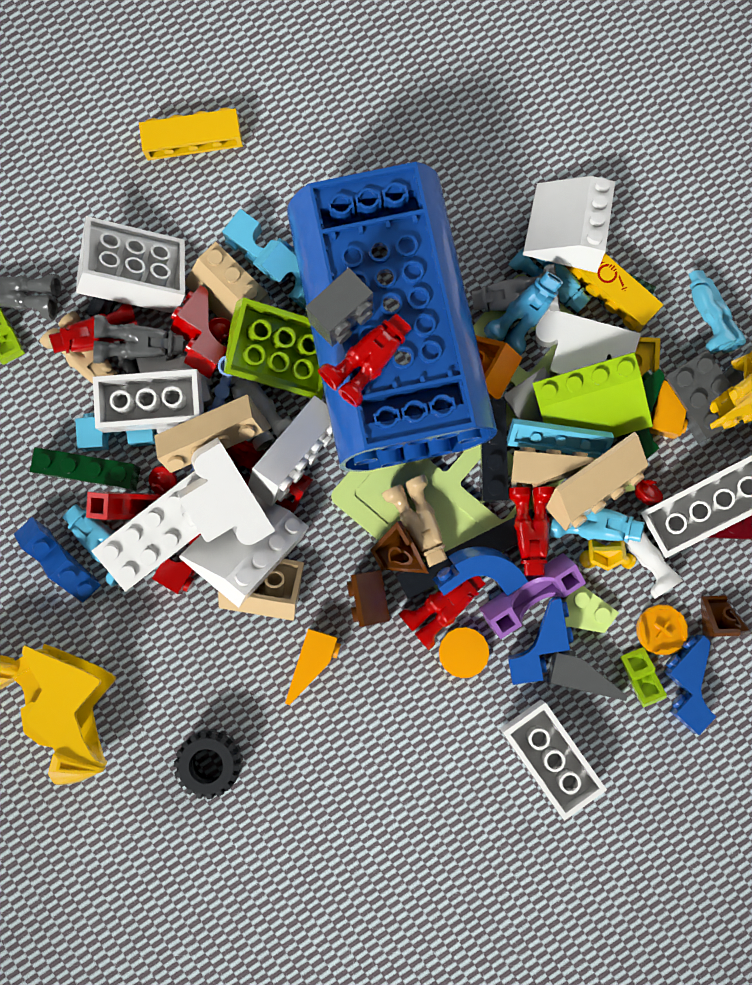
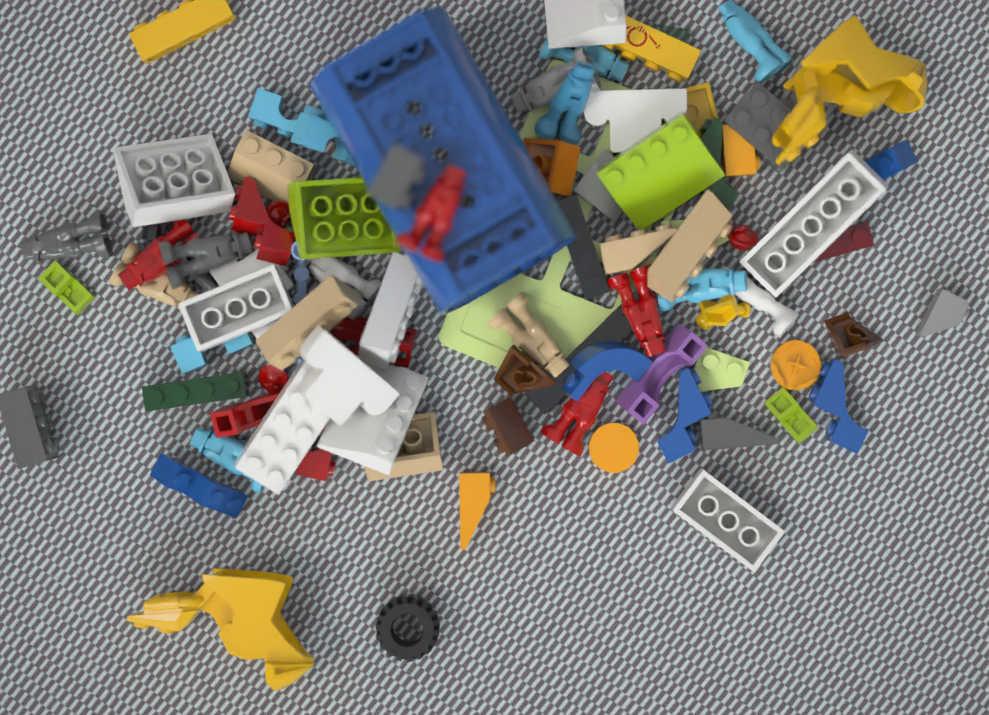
camera: 15 degrees left, 5 degrees up
(559, 437) = (639, 216): medium azure plate -> none

